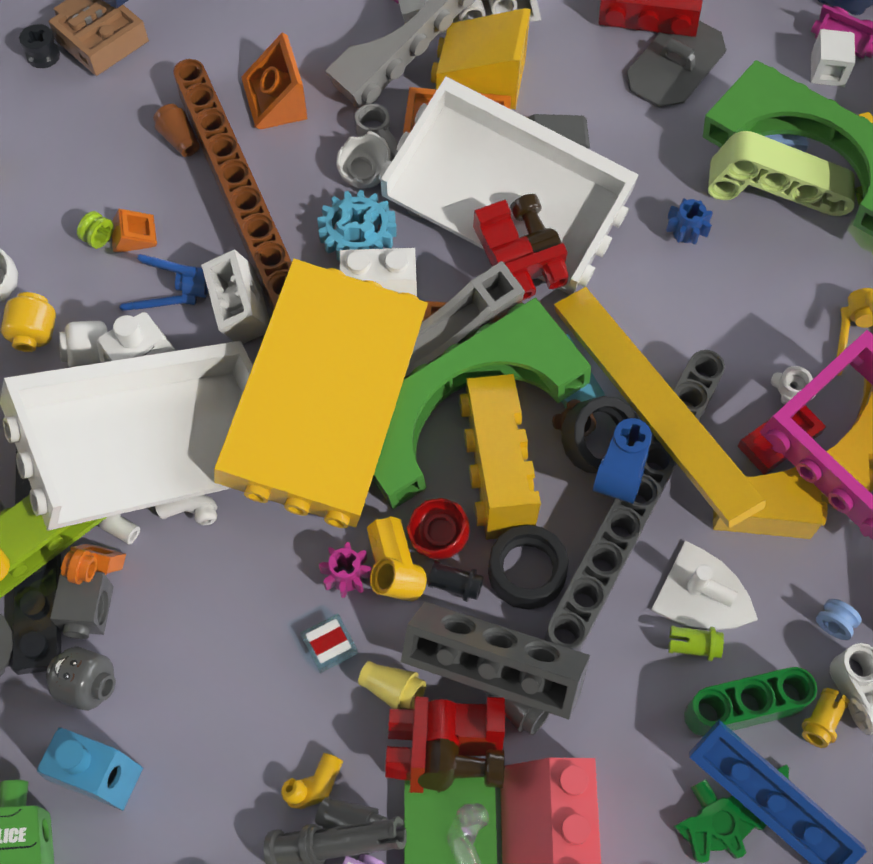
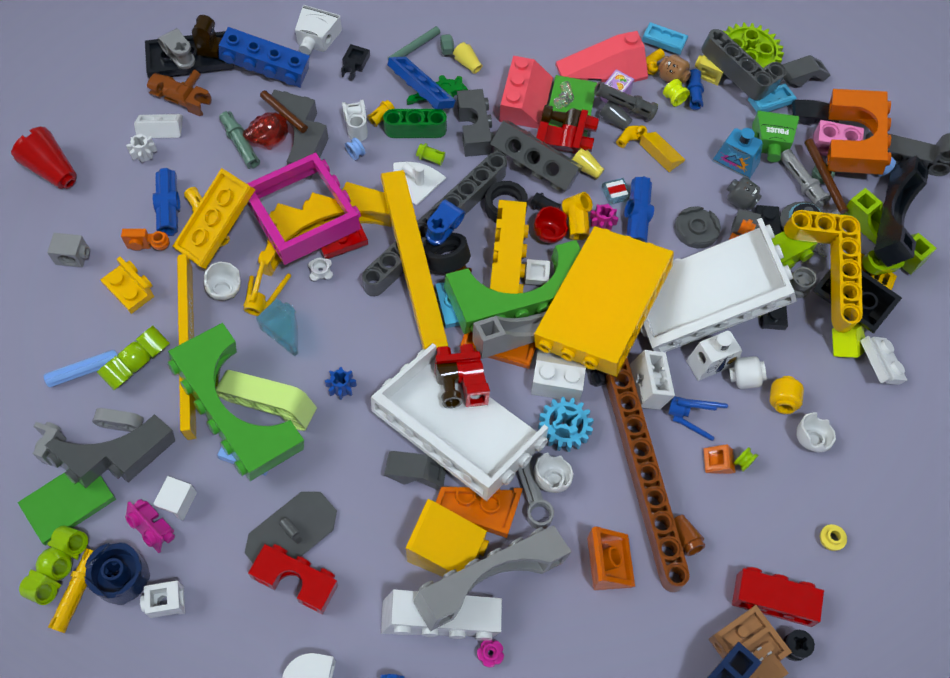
camera: 170 degrees left, 0 degrees up
(60, 83) = (778, 596): none -> red brick
(171, 601) = (697, 227): none -> dark grey tile
(246, 760) = (661, 151): none -> yellow slope
(281, 595) = (639, 209): none -> blue piece
(444, 446) = (537, 272): none -> white plate
(646, 770) = (474, 108): none -> dark grey arch
(808, 279) = (281, 325): none -> clear light blue slope

